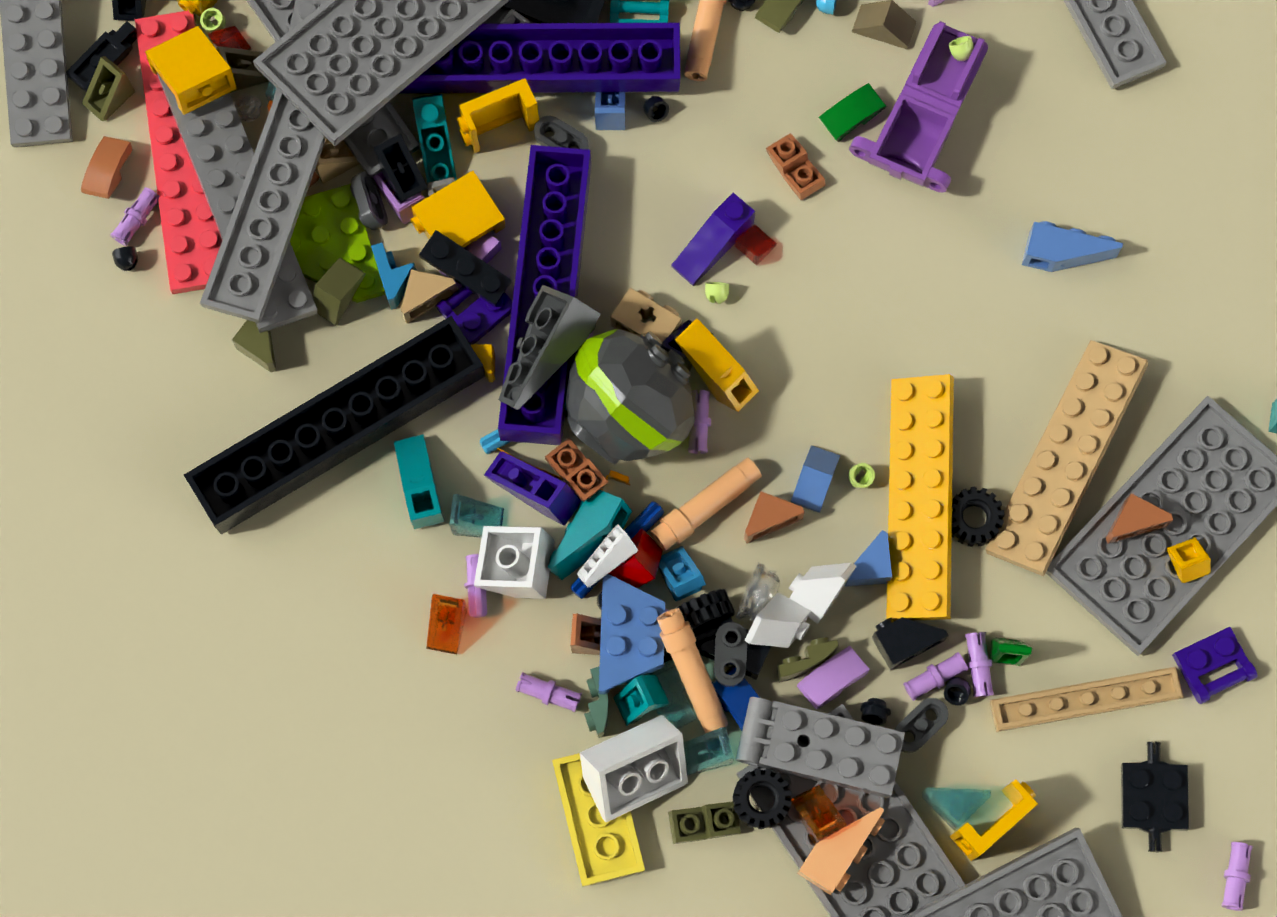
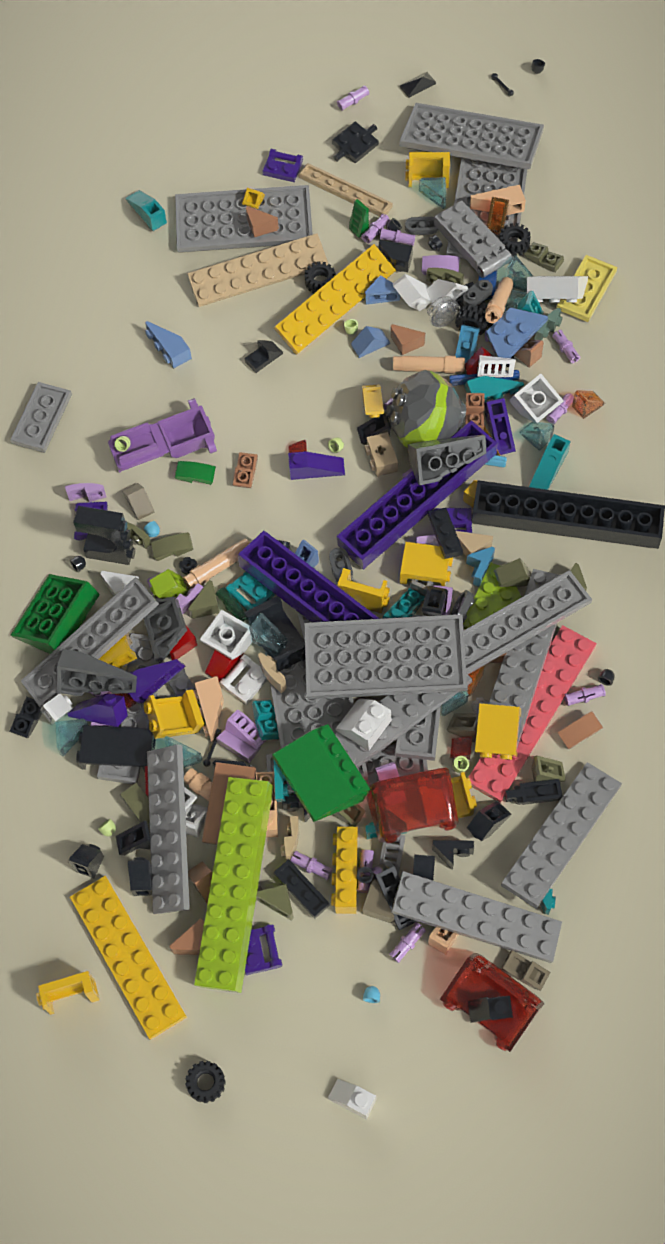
camera: 135 degrees left, 10 degrees down
(933, 341) = (264, 355): none -> black slope

